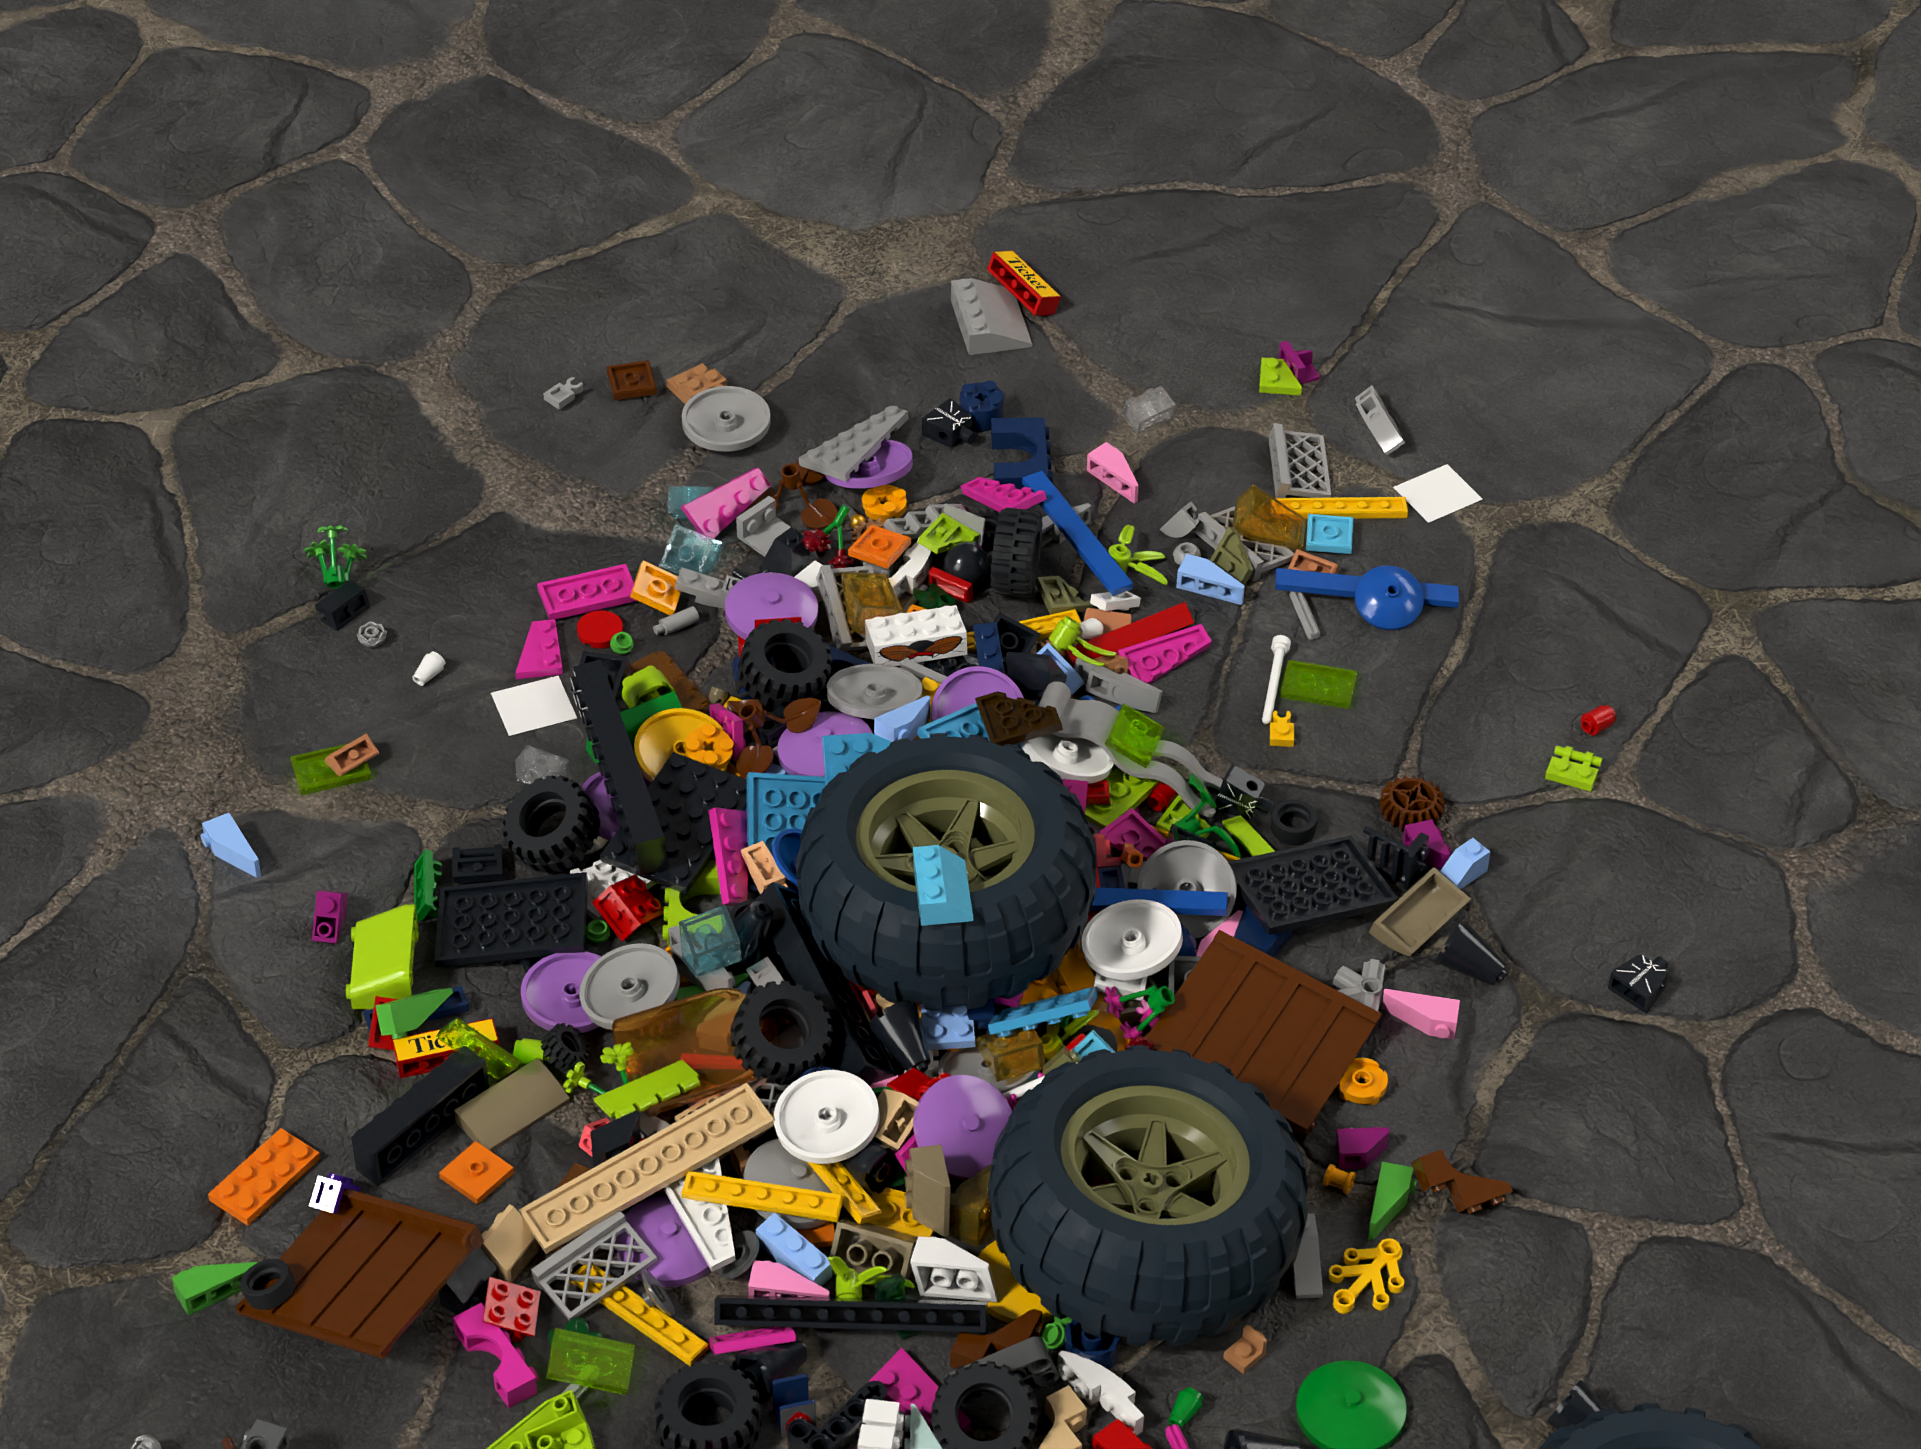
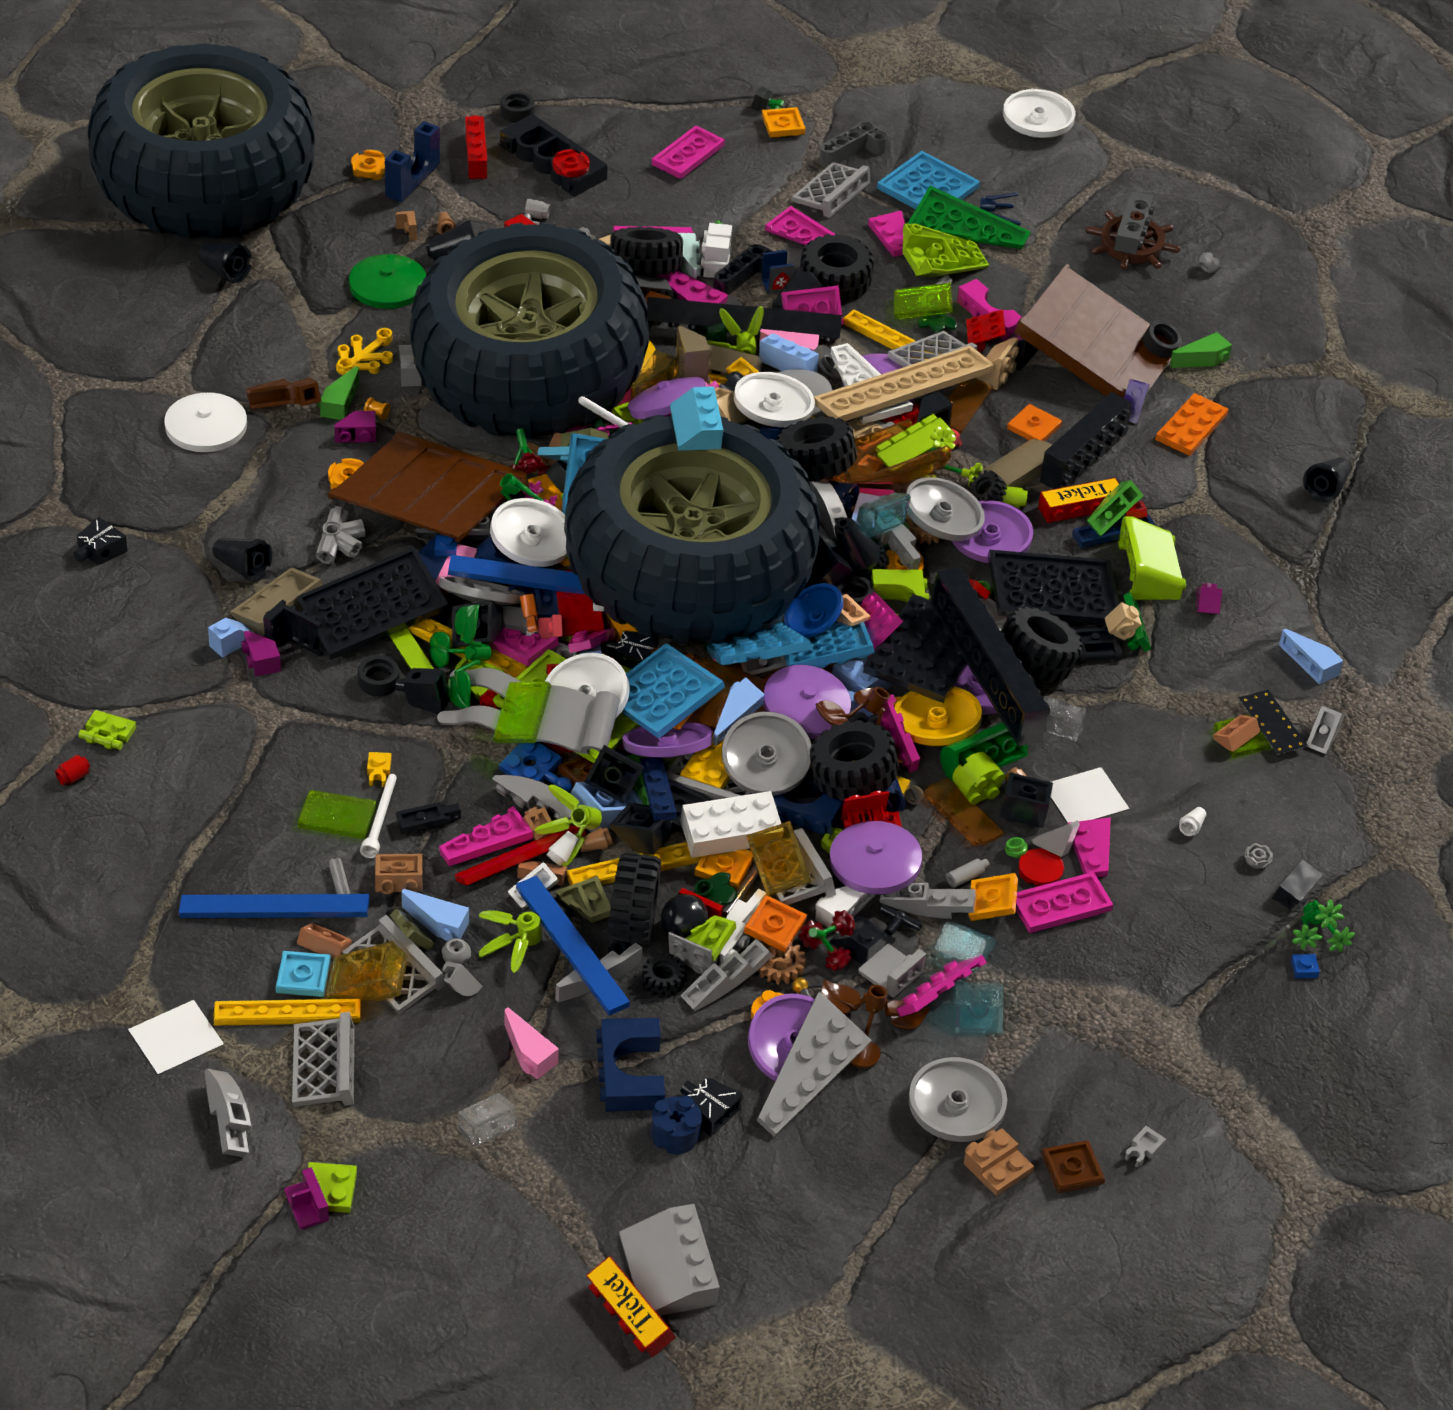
camera: 175 degrees right, 0 degrees up
(115, 1075) = (1326, 479): none -> black cone
(247, 762) = (1325, 729): none -> light grey slope
(305, 772) = (1273, 722): none -> black sticker
(362, 538) = (1305, 966): none -> blue plate
(444, 865) = (1123, 621): none -> tan brick
(498, 1060) = (1053, 468): clear neon green tile -> none
(577, 640) = (1058, 840): none -> light grey slope
(656, 1294) = (883, 334): dark grey dish -> none
(713, 737) = (915, 707): light orange plate -> none
(762, 1196) = (813, 367): yellow tile -> none
(951, 1272) = (663, 329): white slope -> none
(1001, 496) = (650, 990): dark pink wing -> none
(1015, 719) = (636, 686): dark brown plate -> none
(1225, 674) = (427, 816): none -> black hinge
(1249, 616) = (398, 872): none -> medium nougat plate
(1386, 609) = (253, 889): blue dish -> none
(1411, 801) = (267, 690): reddish brown gear -> none
(1427, 1013) = (288, 520): bright pink slope -> none
(1555, 1165) = (205, 422): none -> white dish

